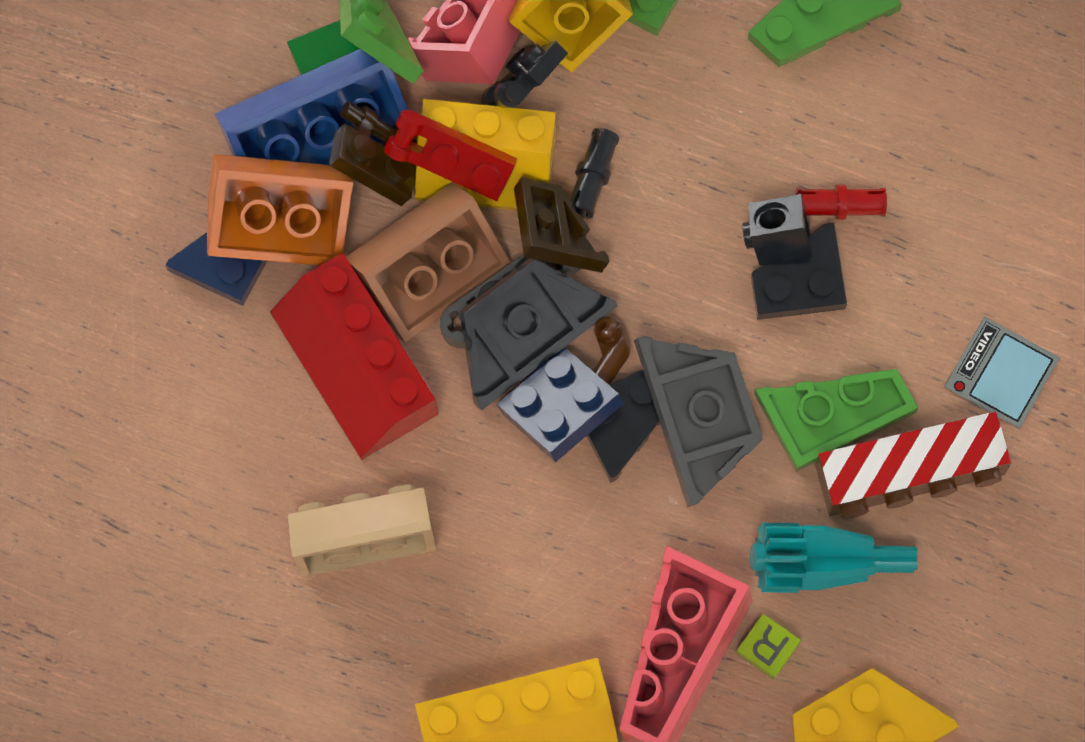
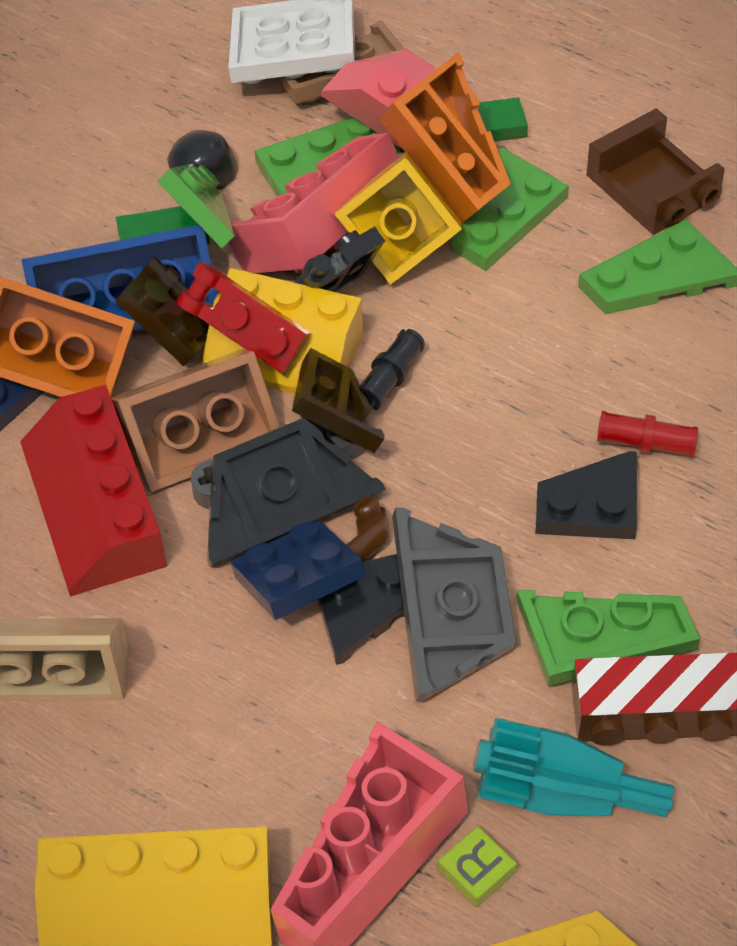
camera: 10 degrees right, 20 degrees down
(778, 230) = (573, 442): black brick -> none

